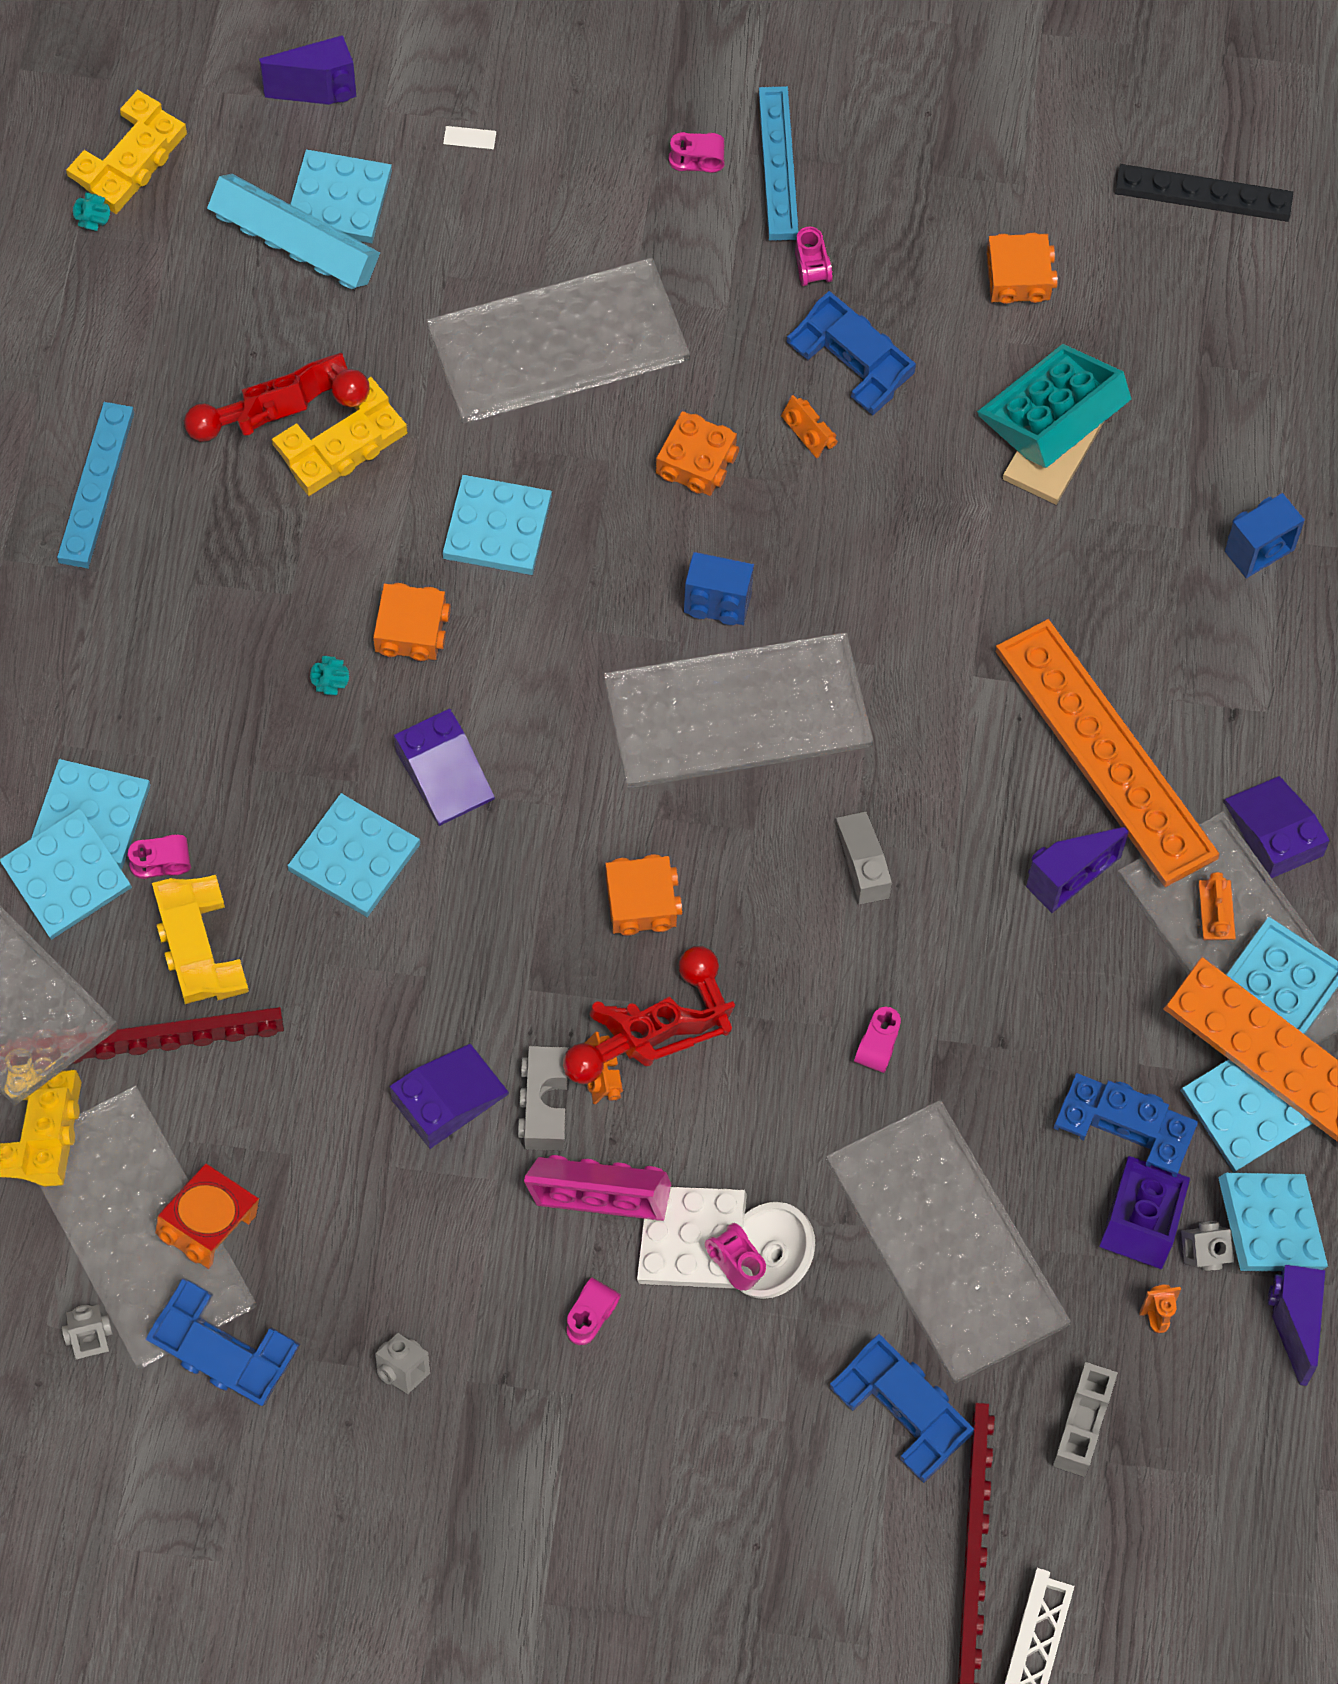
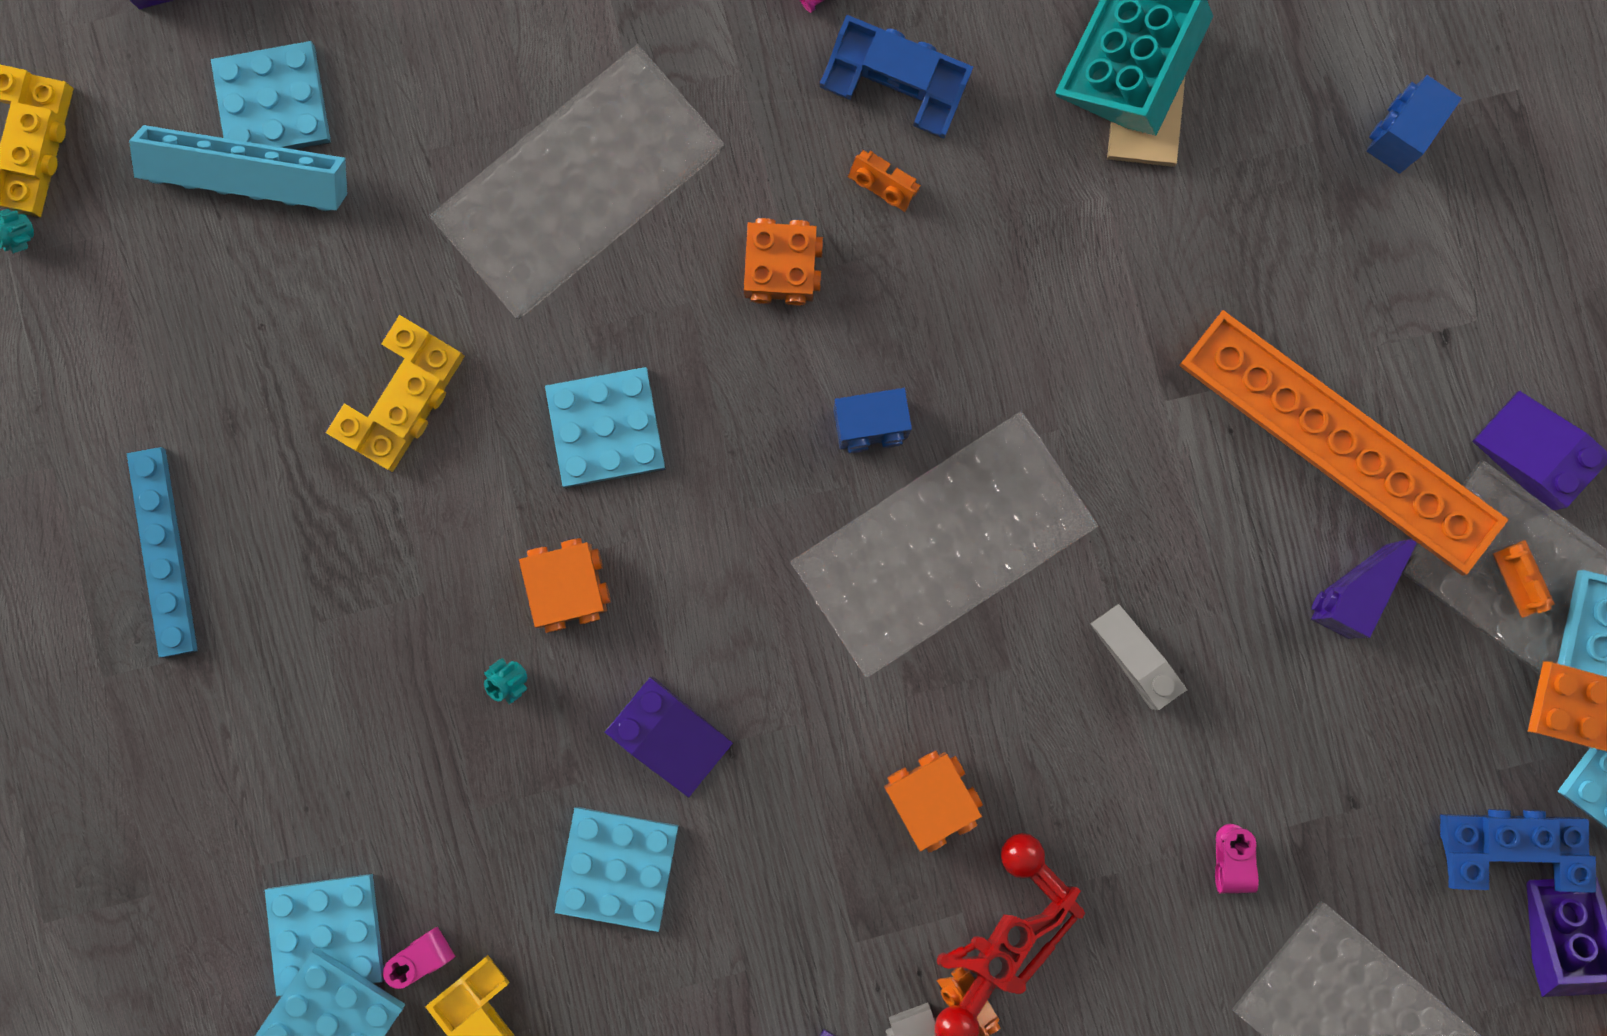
camera: 20 degrees left, 20 degrees up
(280, 398) = (314, 378): red piece -> none

